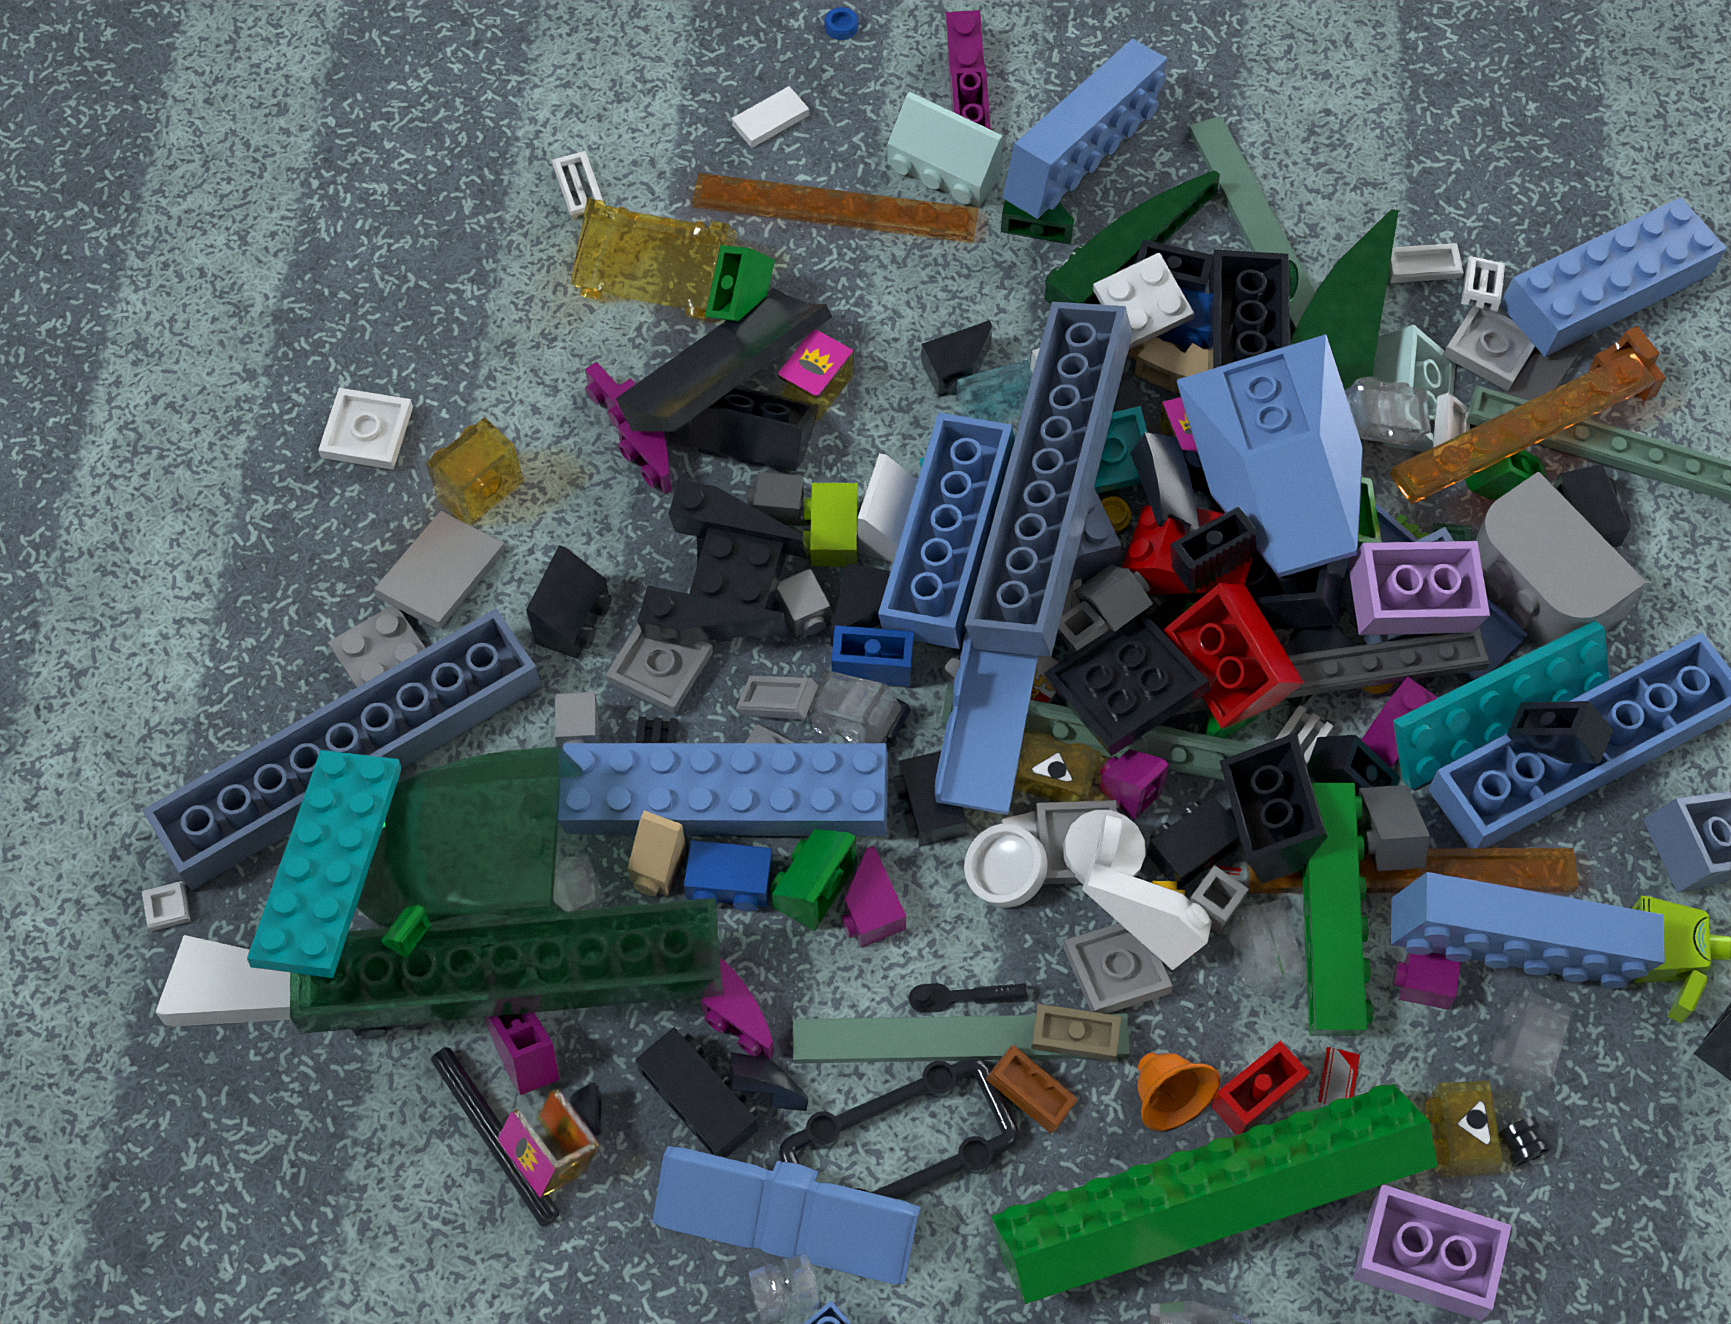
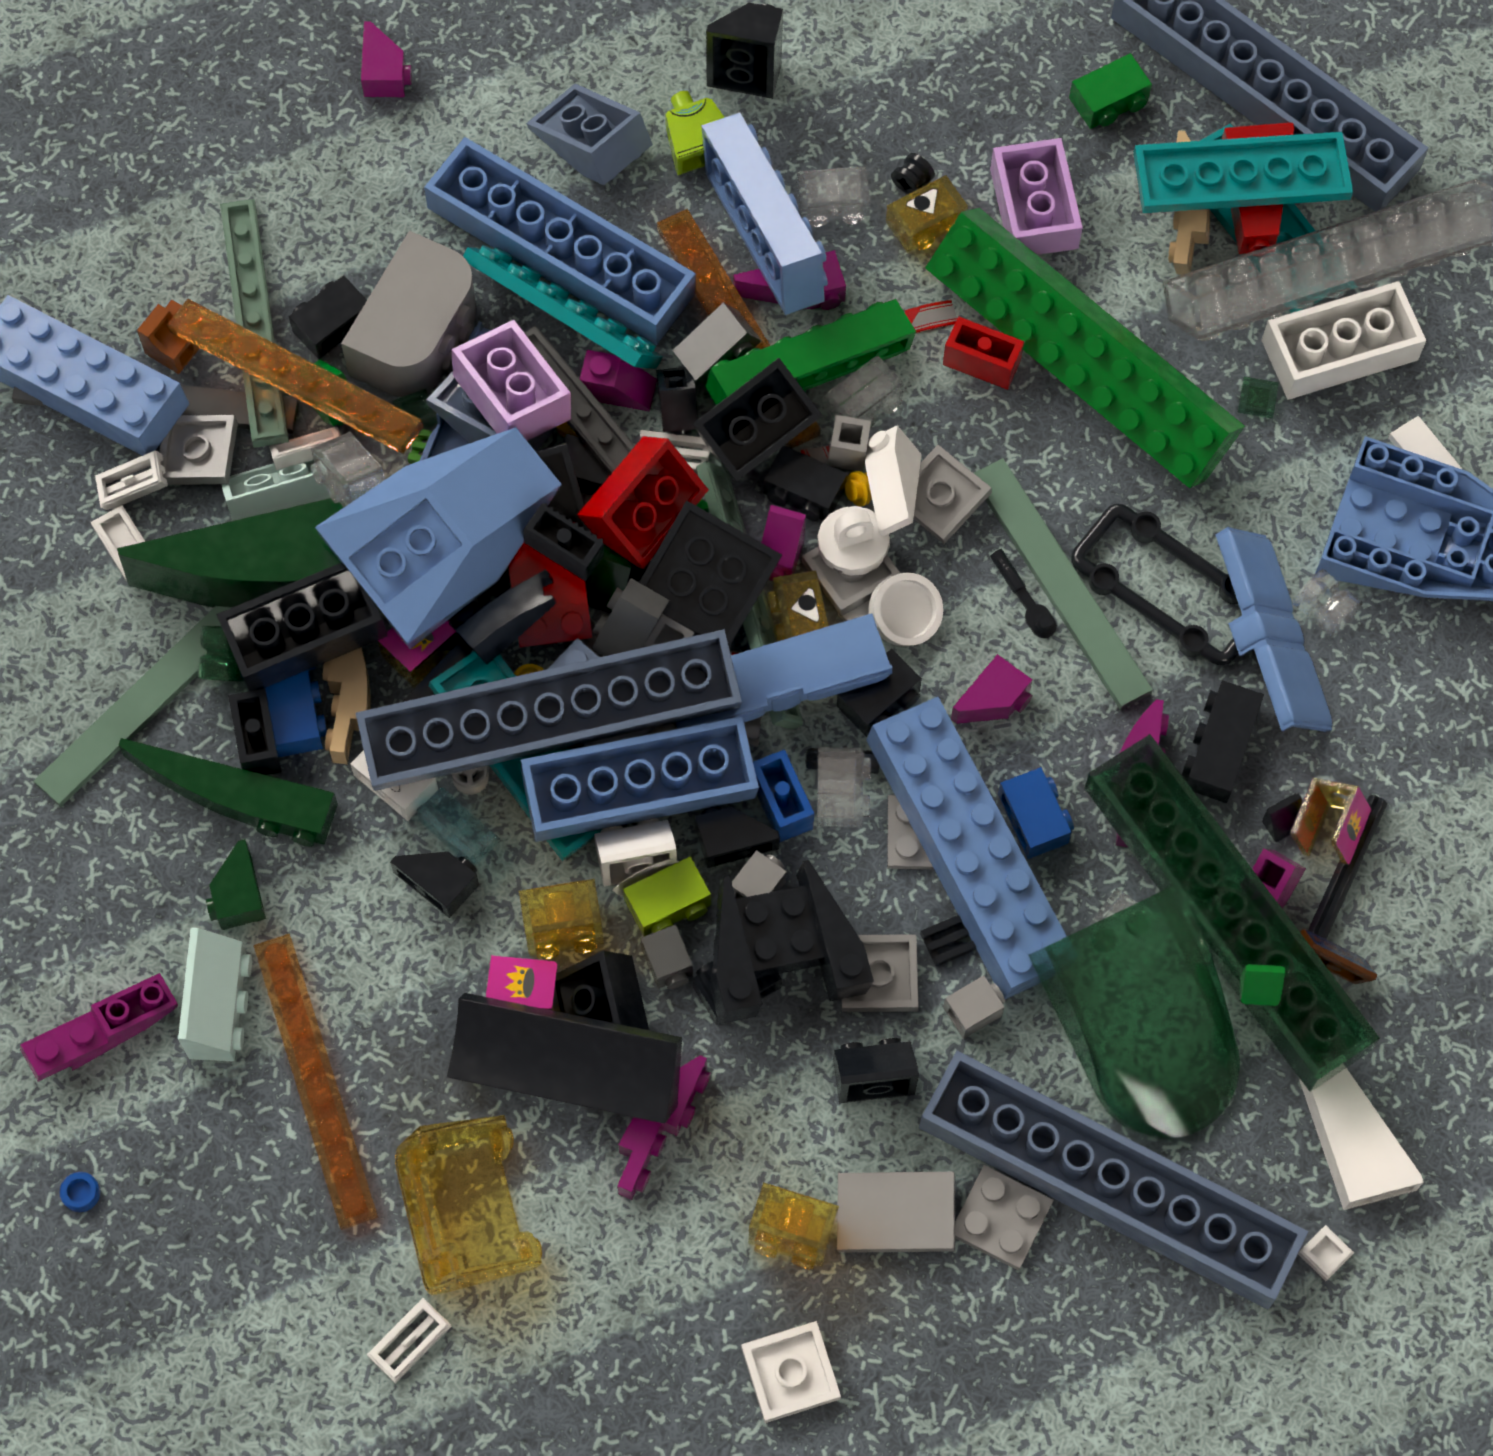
camera: 120 degrees left, 5 degrees up
(325, 864) = (1237, 1095): teal plate -> none
(415, 1067) = (1340, 960): none -> reddish brown slope
(656, 854) = (1058, 869): tan slope -> none
(738, 282) = (470, 1097): green slope -> none
(765, 1076) = (1184, 698): black slope -> none
(770, 117) = (234, 1198): white tile -> none
(777, 697) = (860, 855): light grey tile -> none
(815, 876) = (1003, 738): green slope -> none
(857, 422) = (561, 918): none -> clear yellow brick
(1031, 1089) = (1073, 510): dark orange plate -> none
(1076, 1032) = (1015, 494): dark tan plate -> none
(1084, 128) = (136, 865): medium blue brick -> none
(1150, 298) = (310, 732): white plate -> none
(1174, 1090) = (1013, 417): orange hat -> none
(1562, 730) = (580, 246): black slope -> none
(1688, 996) = (737, 104): lime tile -> none

